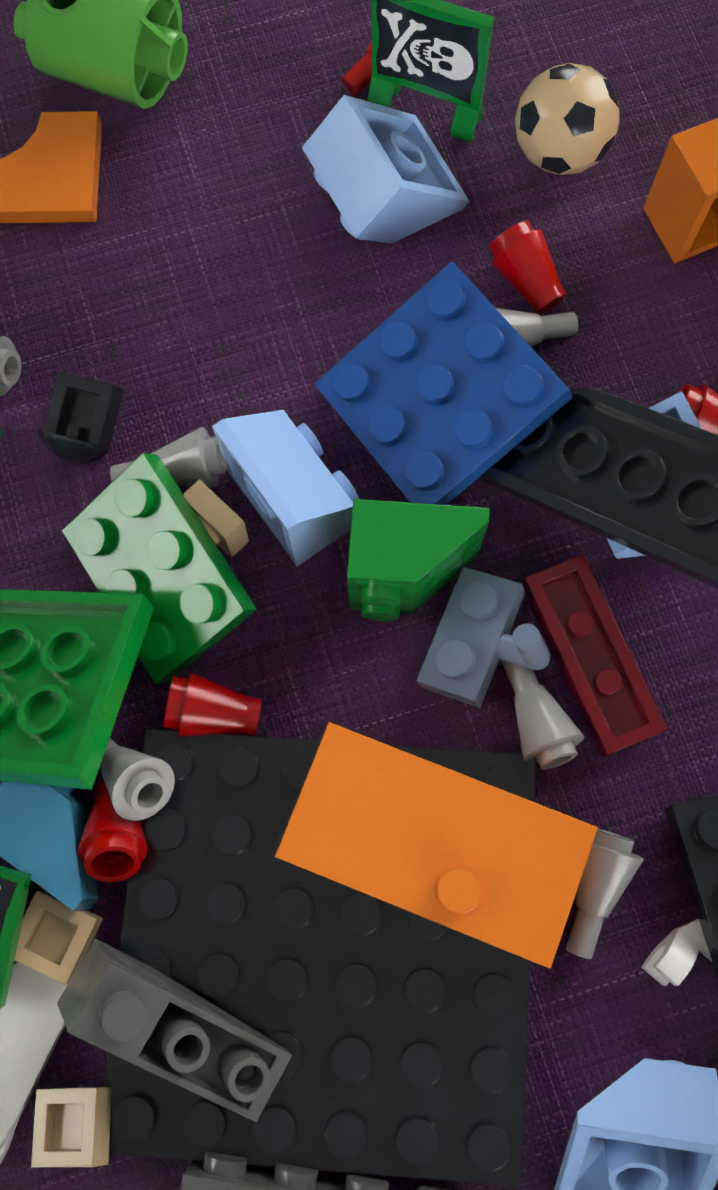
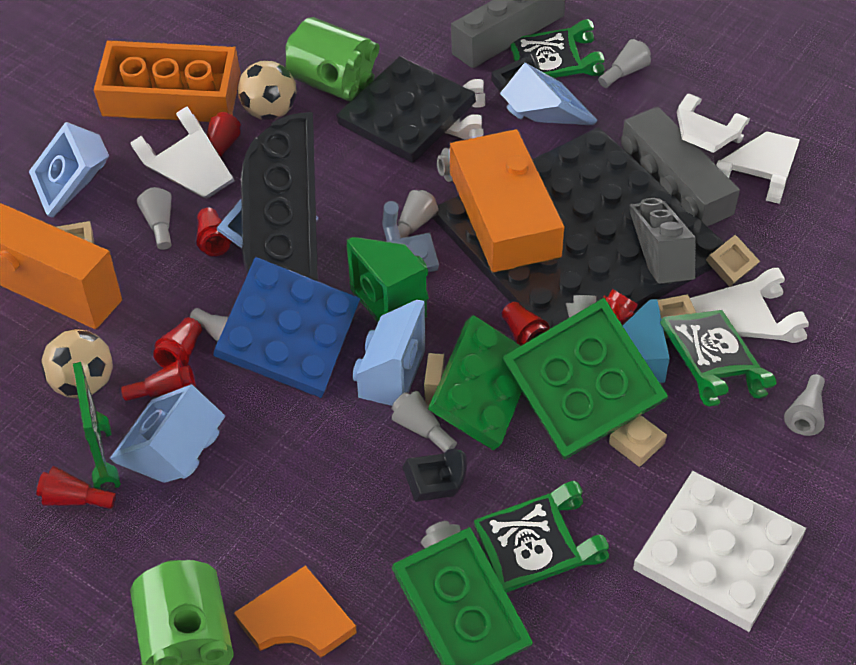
camera: 130 degrees left, 25 degrees down
(470, 225) = (162, 382): none -> red cone
(593, 655) = (365, 214): dark red plate -> none

